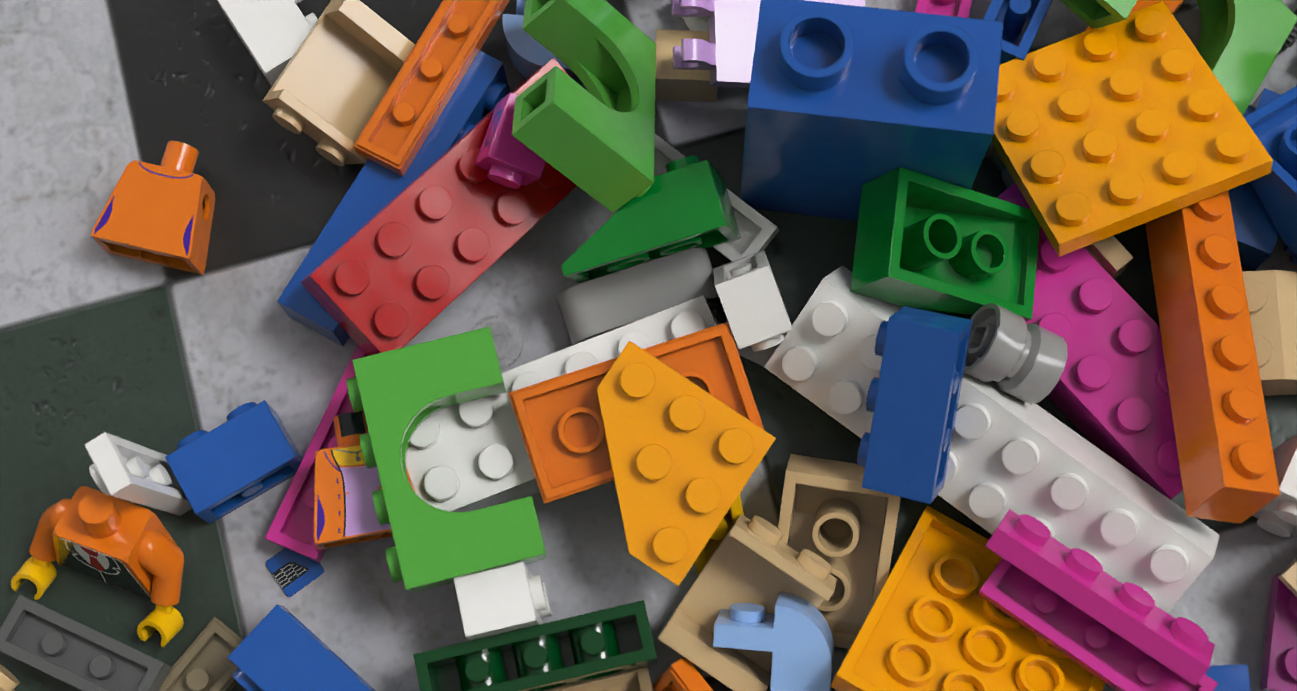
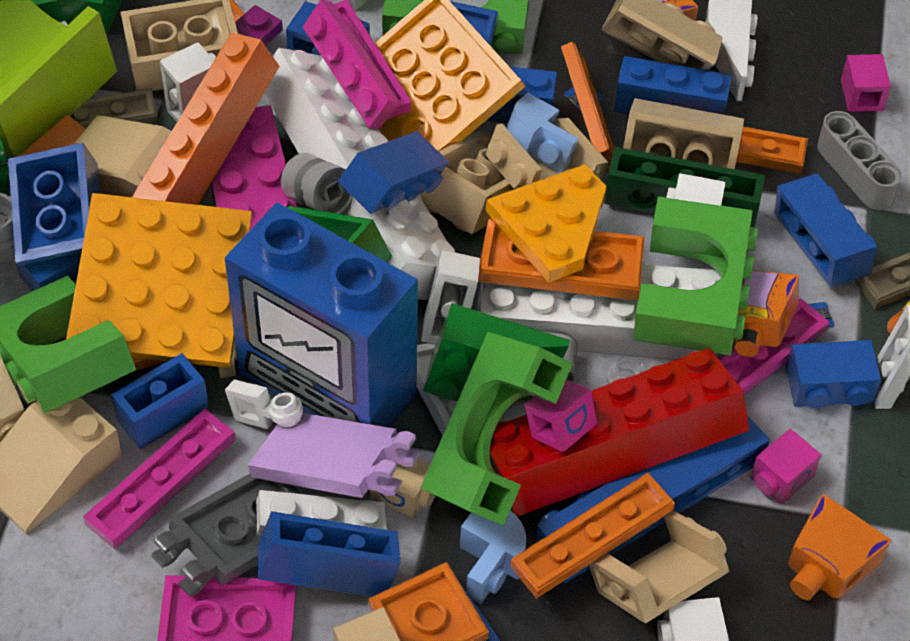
camera: 160 degrees left, 20 degrees down
(250, 295) = (785, 466): none -> dark pink brick

